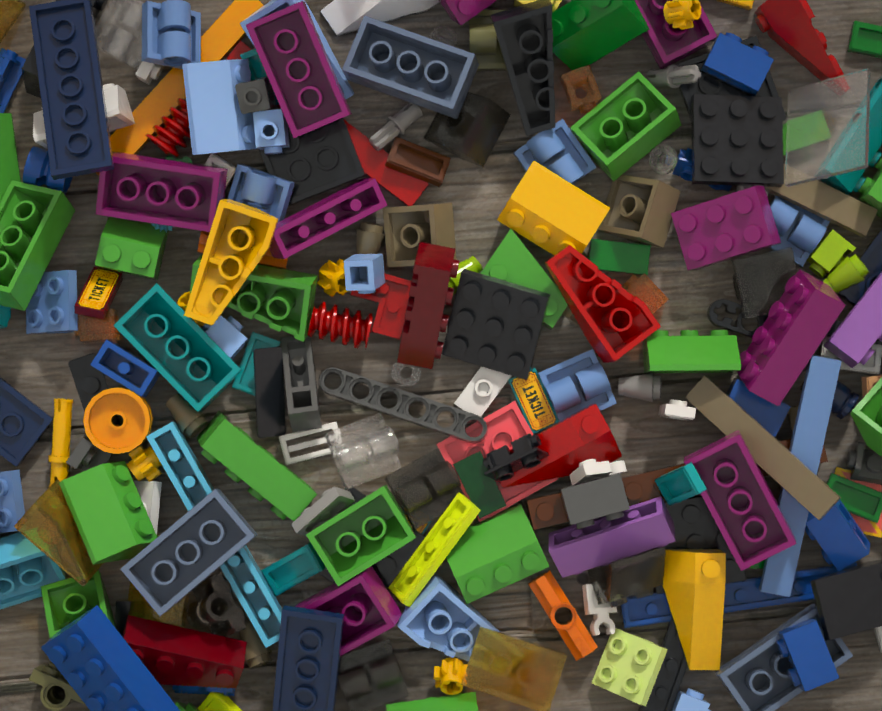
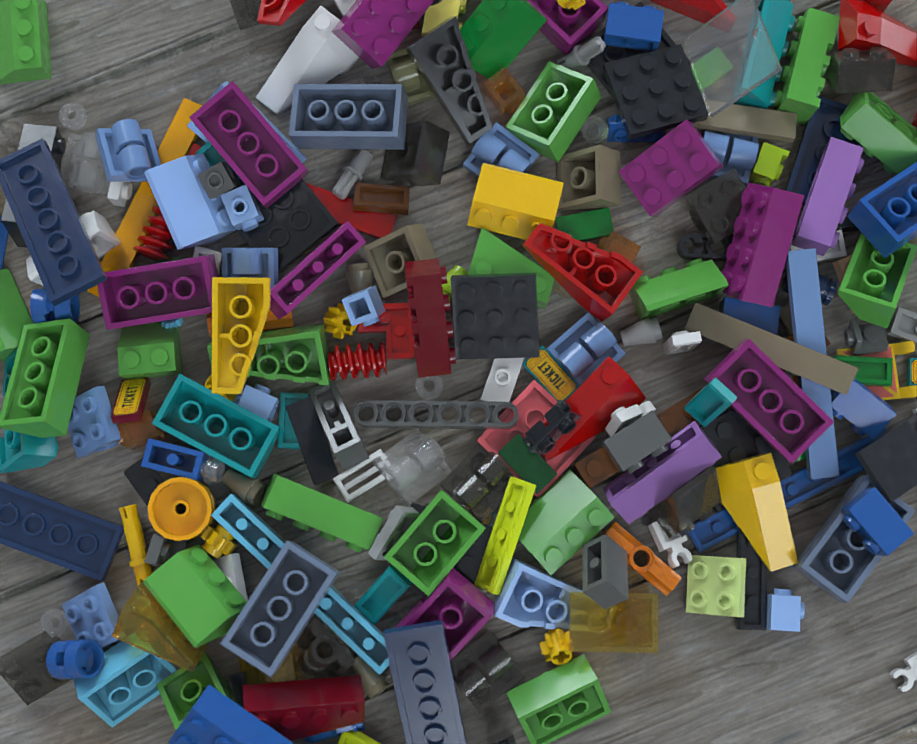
camera: 10 degrees left, 5 degrees down
(160, 391) = (212, 471): none -> clear plate
(521, 618) = (605, 572): none -> dark grey brick
(846, 274) = (791, 174): lime cone -> none

